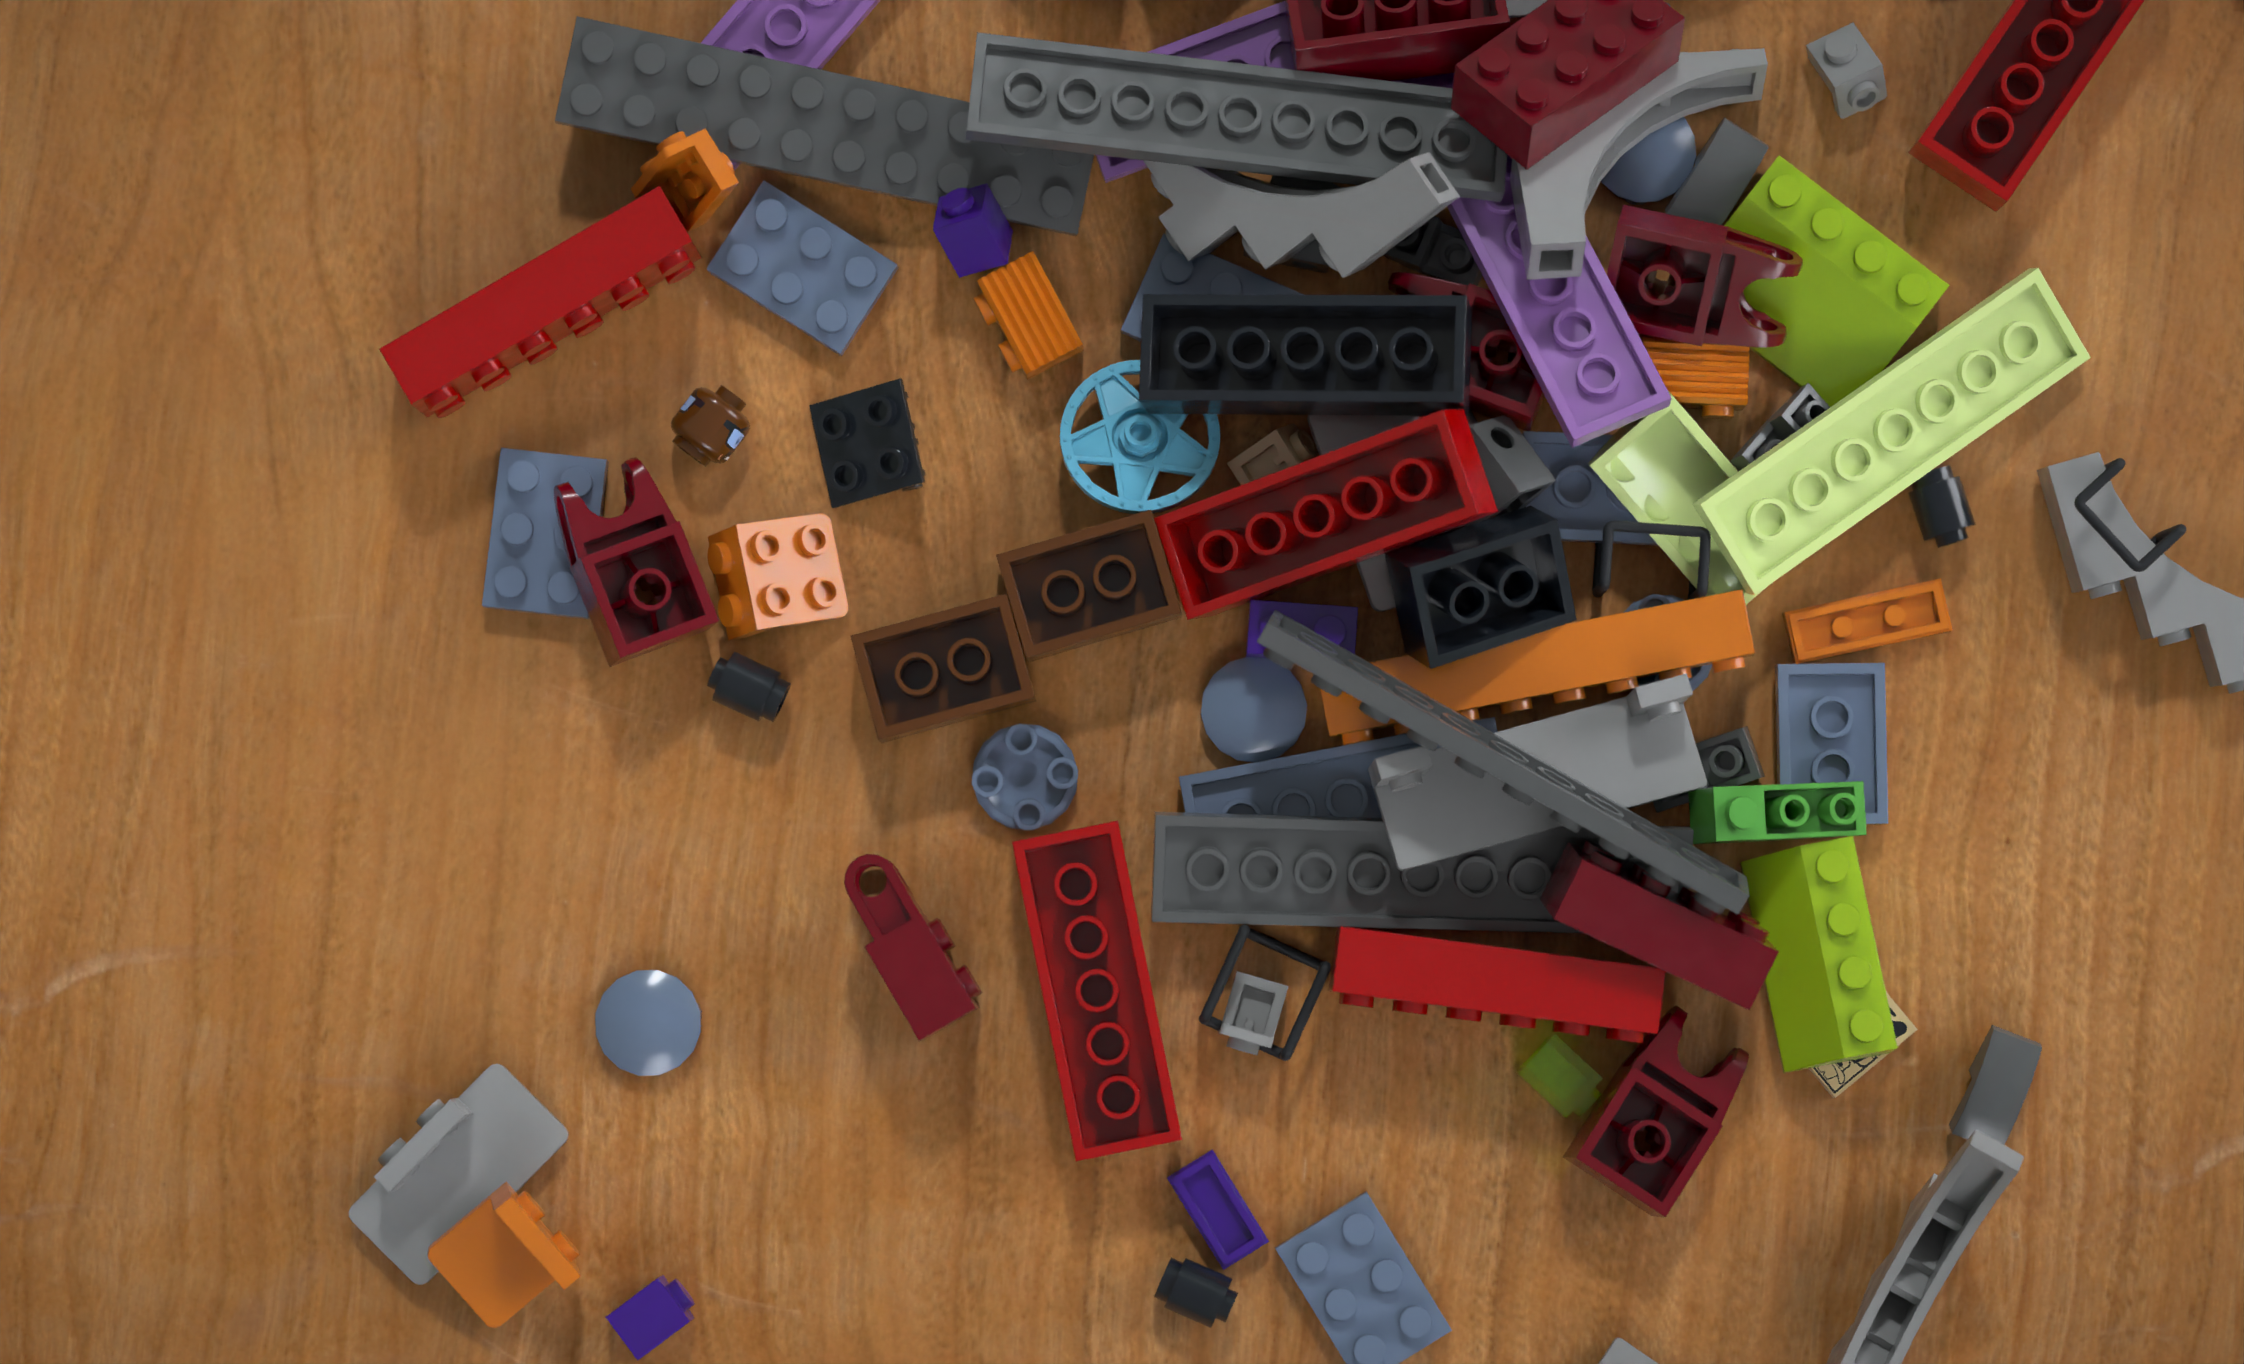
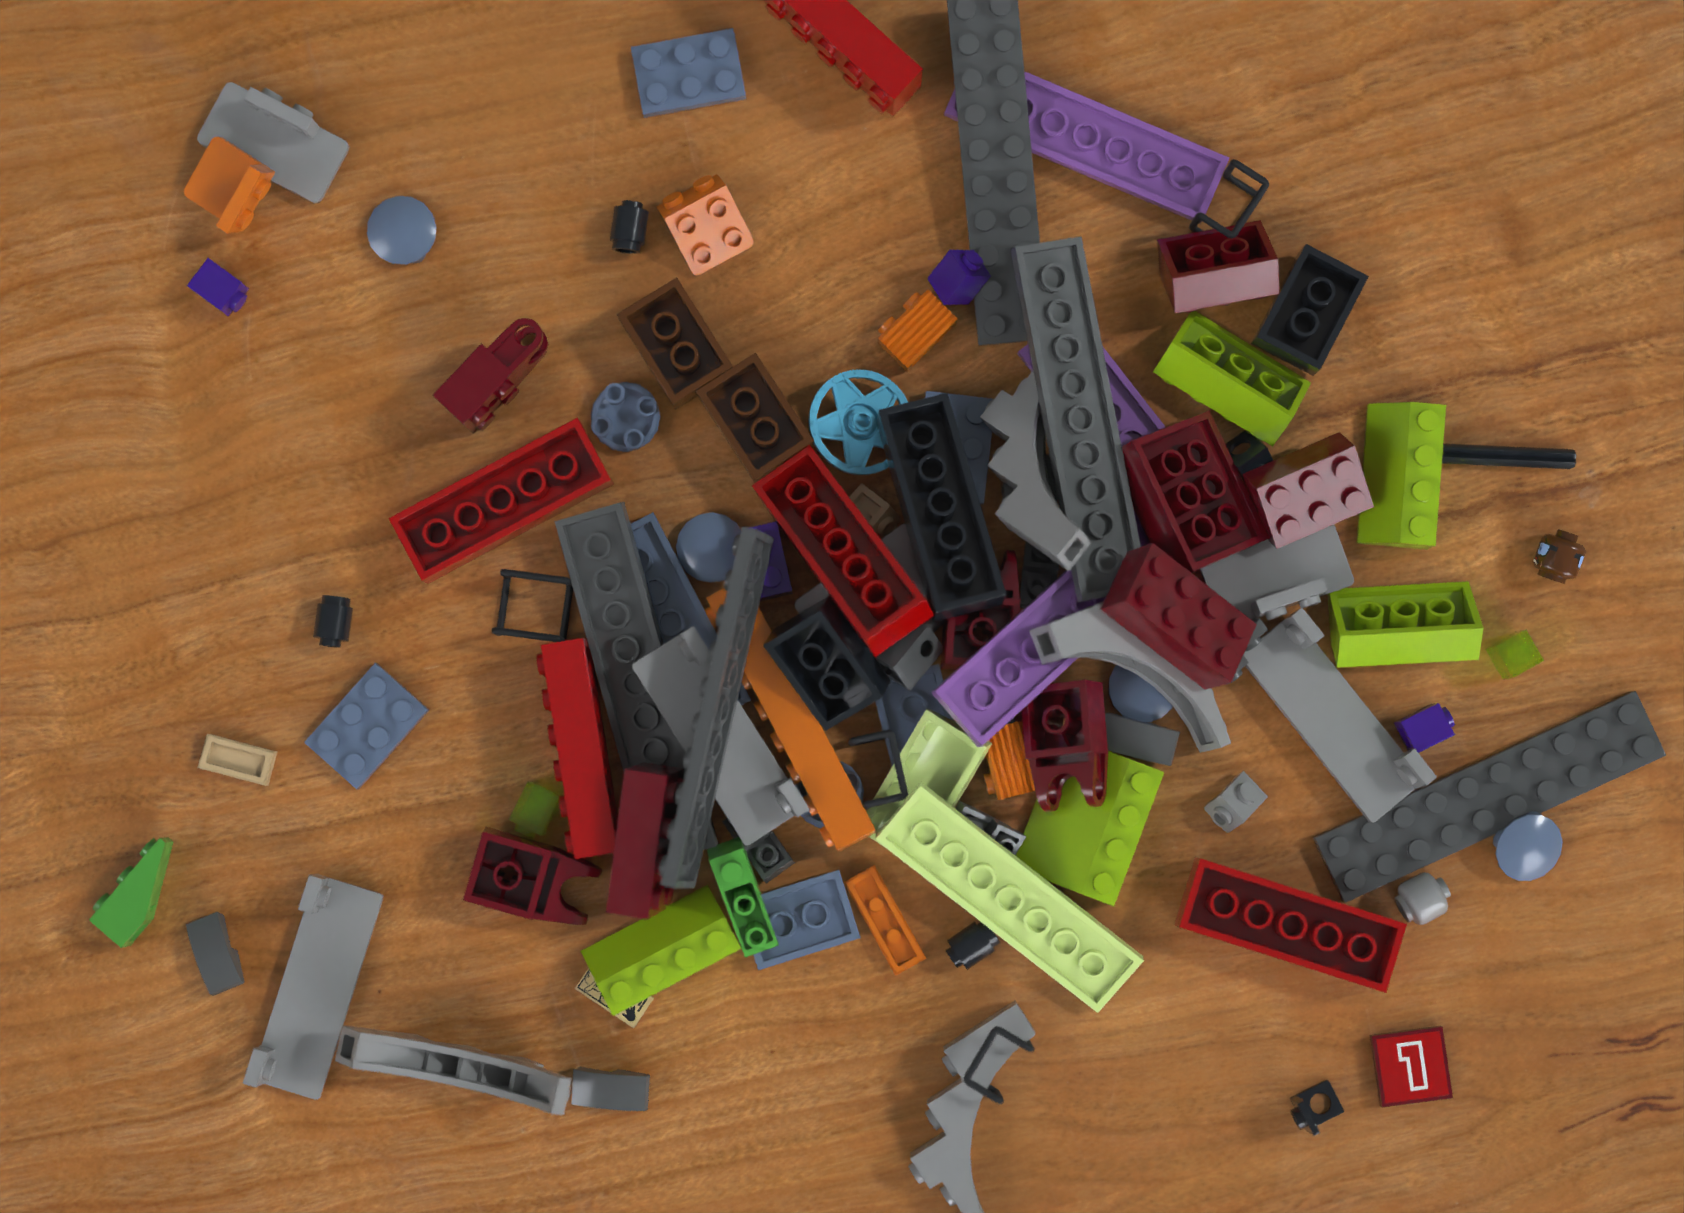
camera: 70 degrees right, 0 degrees up
(631, 549) = (689, 122): dark red brick -> none
(690, 175) = (940, 90): orange bracket -> none
(710, 425) = (786, 153): reddish brown head -> none
(802, 268) = (904, 180): sand blue plate -> none
(867, 443) = (805, 255): black hinge -> none
(1217, 1209) = (390, 620): dark purple tile -> none
(1252, 1012) = (517, 603): light grey bracket -> none

